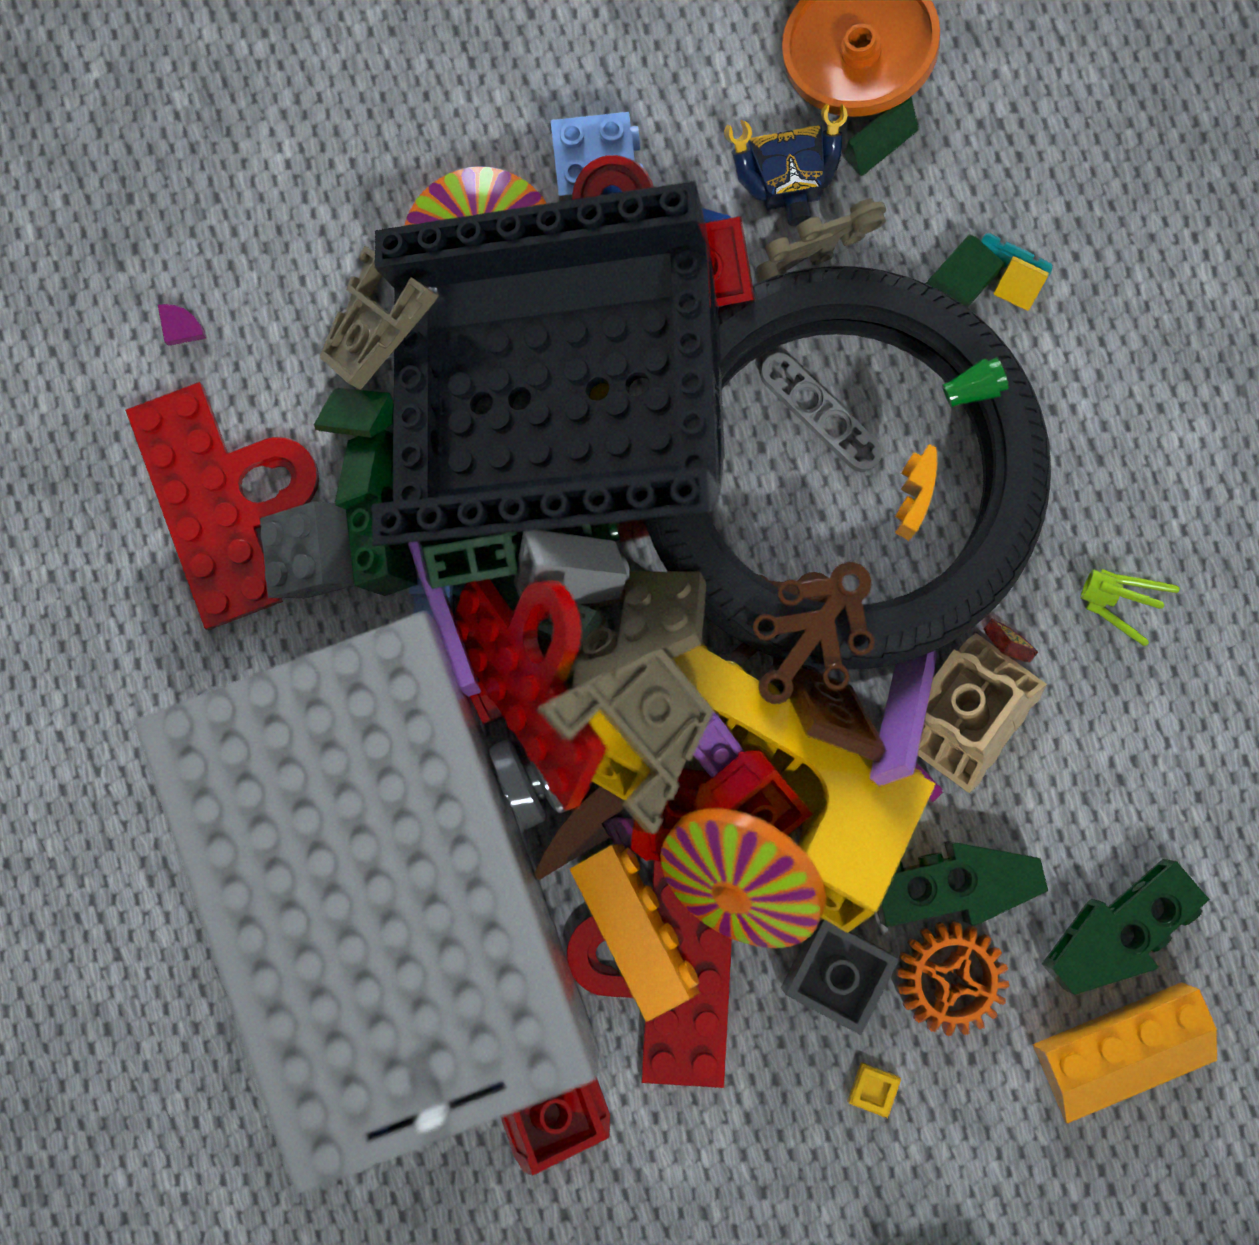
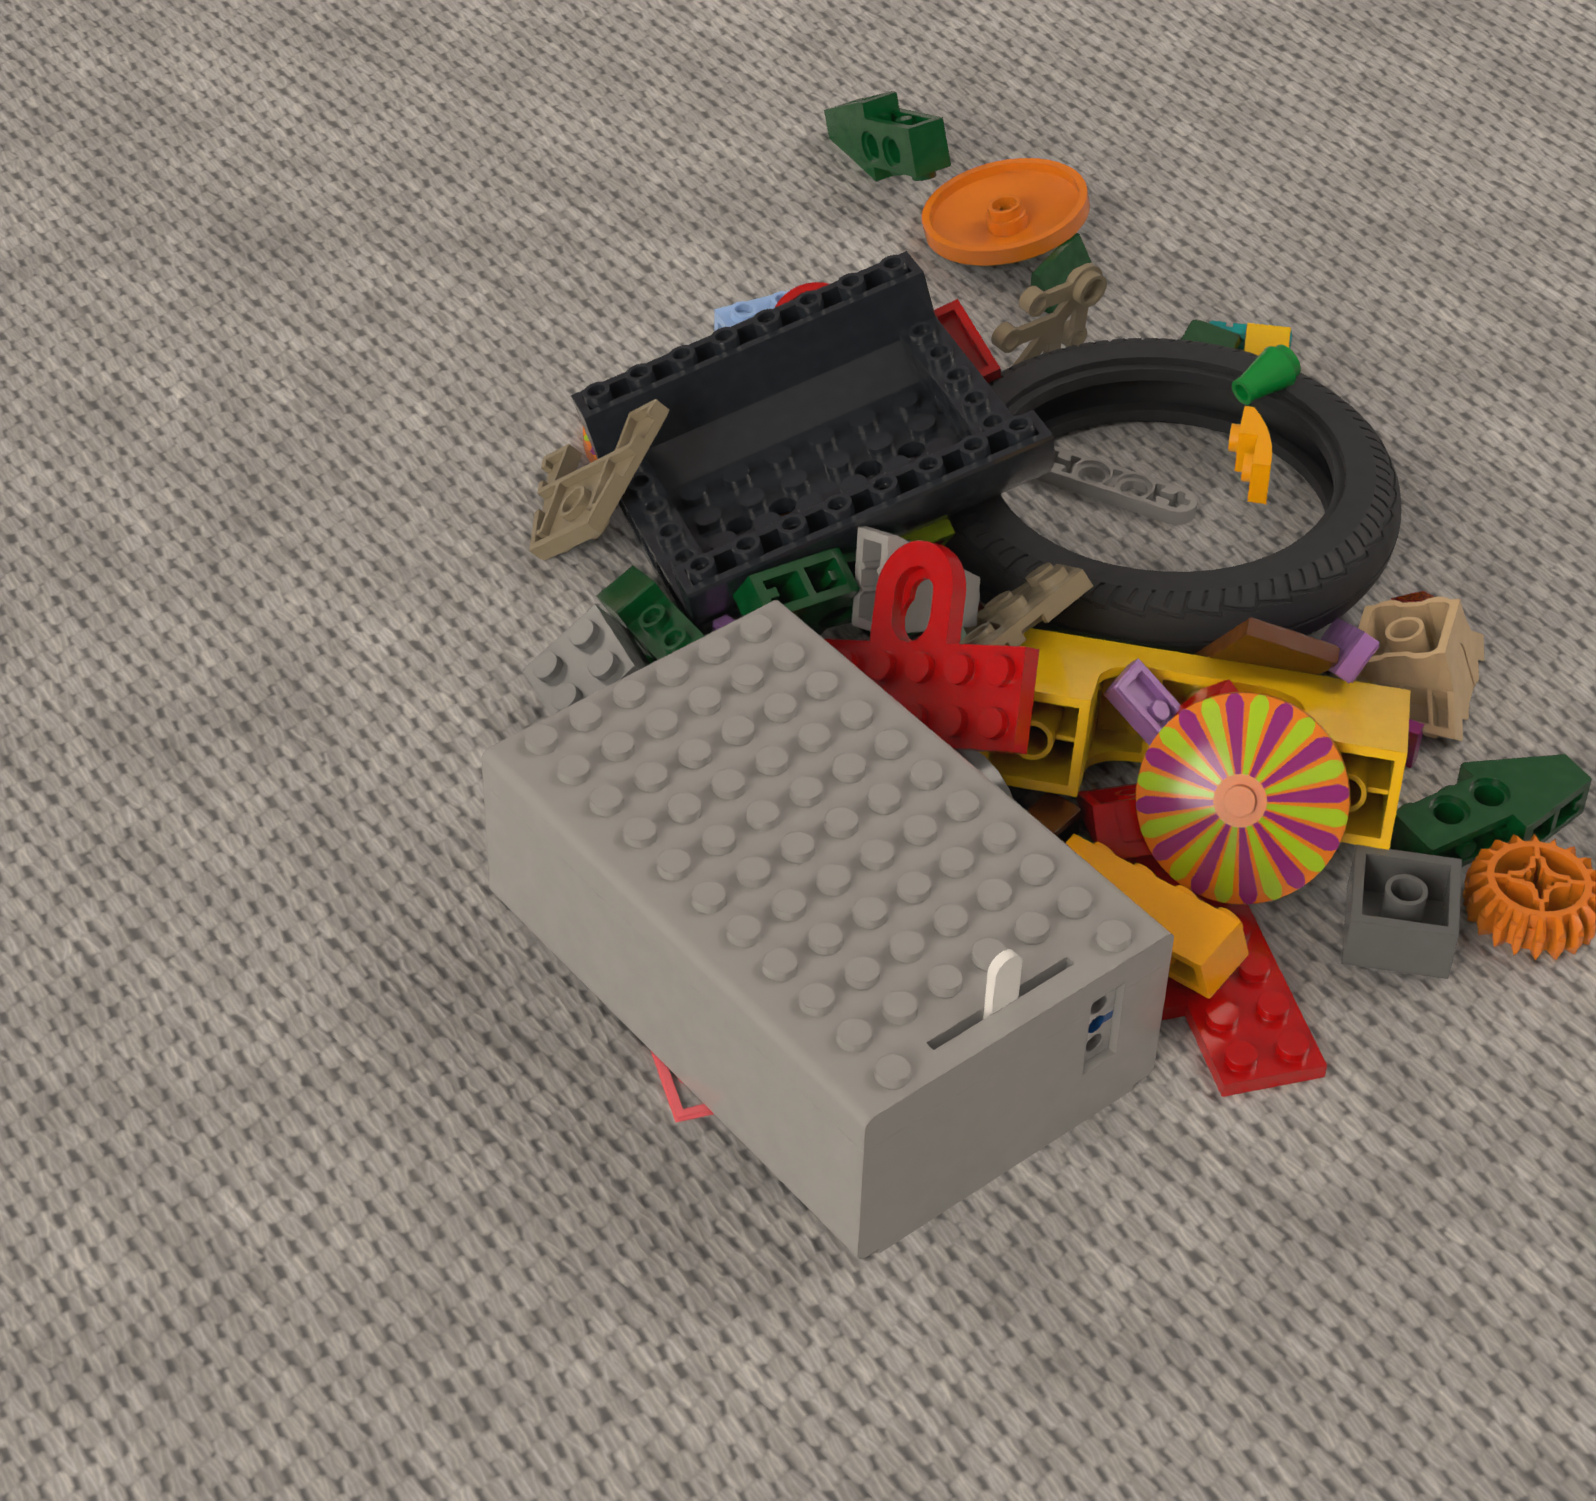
camera: 20 degrees left, 40 degrees down
(179, 325) = (354, 558): magenta tile -> none
(205, 499) = (438, 684): red plate -> none
(356, 412) = (600, 564): dark green slope -> none
(558, 1127) = (1121, 1136): red slope -> none
(652, 711) = (1072, 639): dark tan wing -> none
(789, 165) = (989, 295): dark blue torso -> none
(818, 627) = (1221, 539): reddish brown plant -> none
(874, 1090) = (1508, 1031): yellow tile -> none
(1105, 588) = (1498, 548): lime plant -> none

